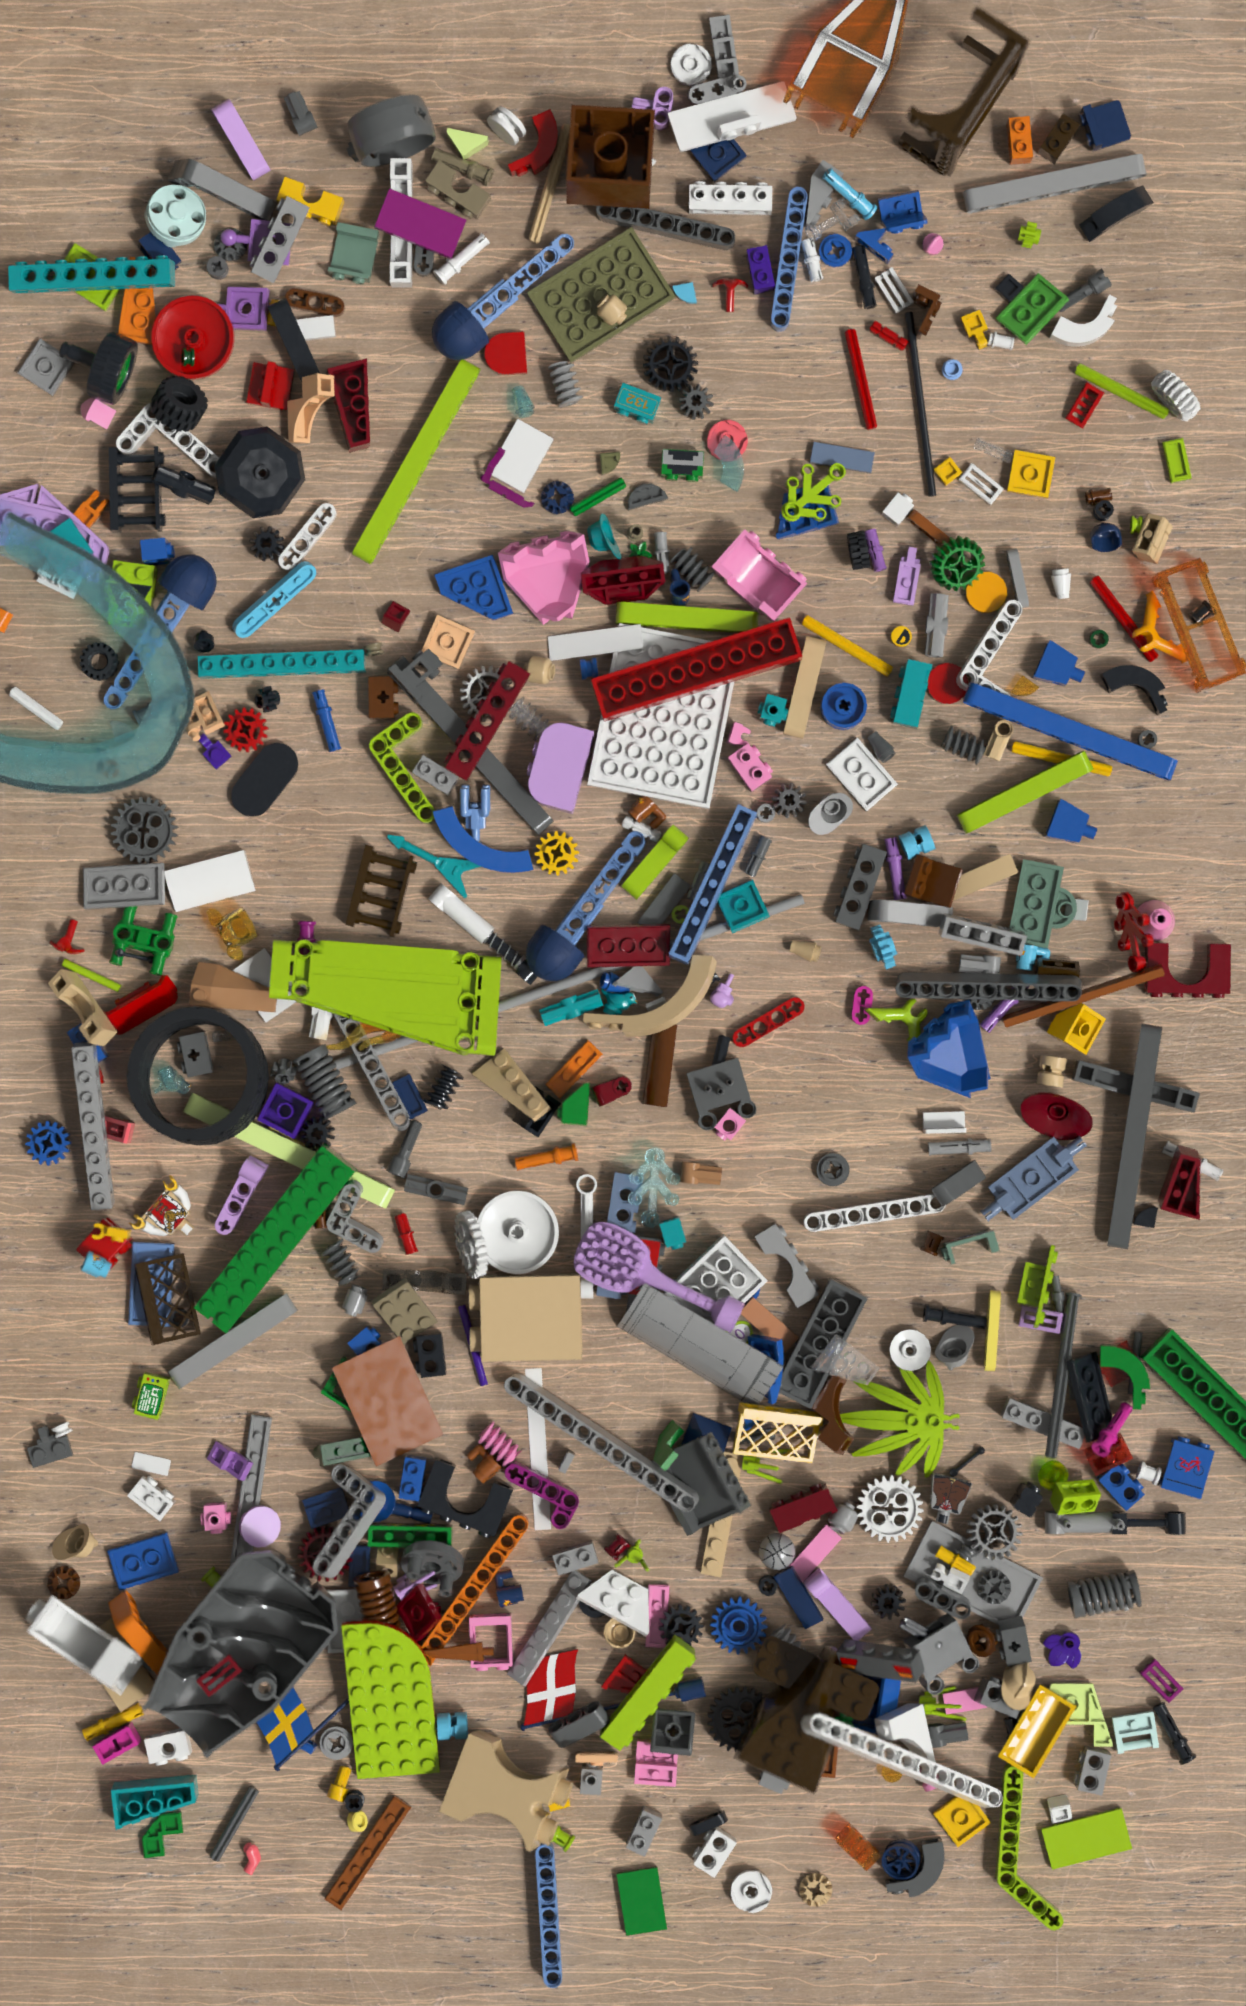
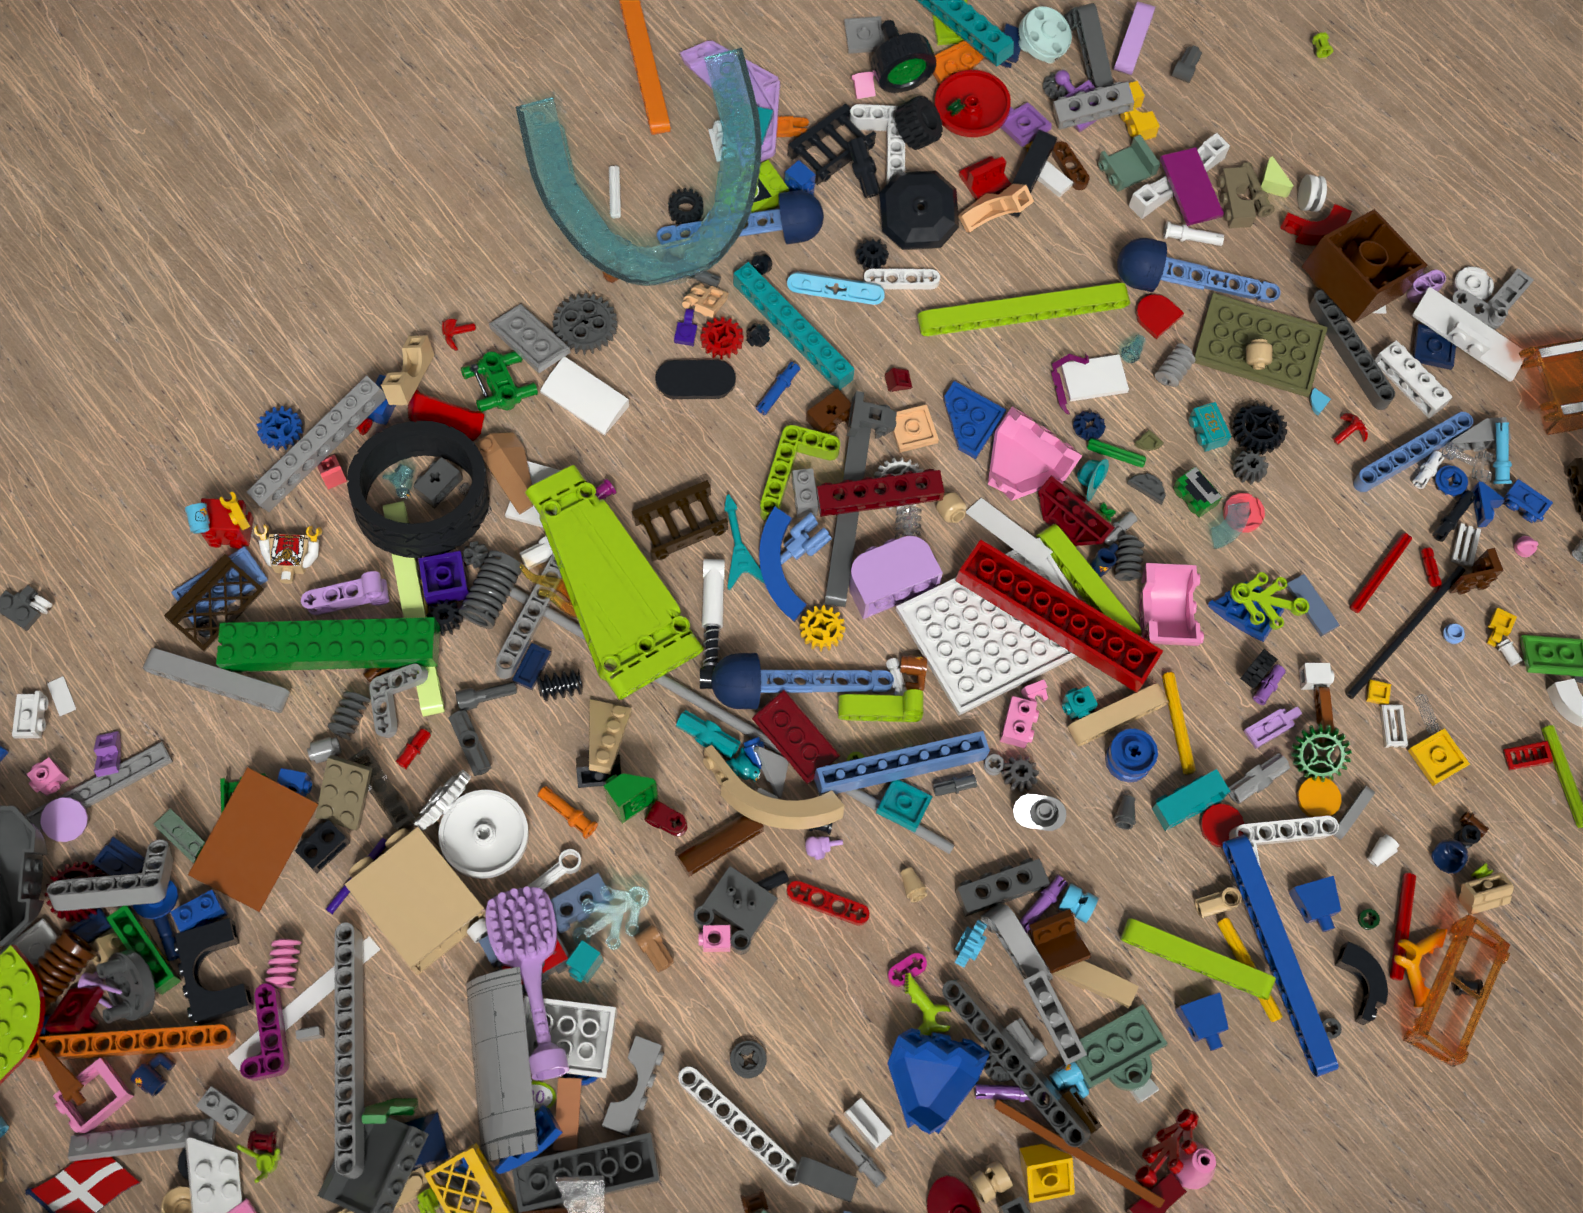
camera: 50 degrees right, 20 degrees down
(91, 975) = (441, 368): lime bar -> none
(151, 1395) = (121, 651): brick -> none
(221, 270) = (1030, 91): flat silver wheel -> none
(234, 930) = (560, 437): clear yellow piece -> none
(352, 402) = (1029, 231): dark red wedge -> none
(374, 649) = (860, 381): dark tan bush -> none
(390, 130) = (1247, 96): dark grey cylinder -> none
(418, 261) = (1168, 207): dark grey beam -> none
(487, 1467) = (254, 969): dark orange piece -> none
(550, 184) = (1281, 262): tan axle -> none
(573, 1069) = (665, 776): orange tile -> none
(589, 668) = (984, 535): blue wheel -> none
(635, 532) = (1117, 493): dark tan axle -> none
(665, 901) = (857, 741): dark grey tile -> none
(760, 269) = (1386, 436): dark purple brick -> none
(861, 774) = (1091, 816): white tile -> none
(901, 636) = (1224, 759): yellow tile -> none
(964, 745) = (1188, 877): dark grey piece -> none
(1009, 288) = (1551, 627): black tile -> none
(1024, 687) = (1278, 891): clear yellow tile -> none
(1176, 460) = (1558, 865): lime tile -> none

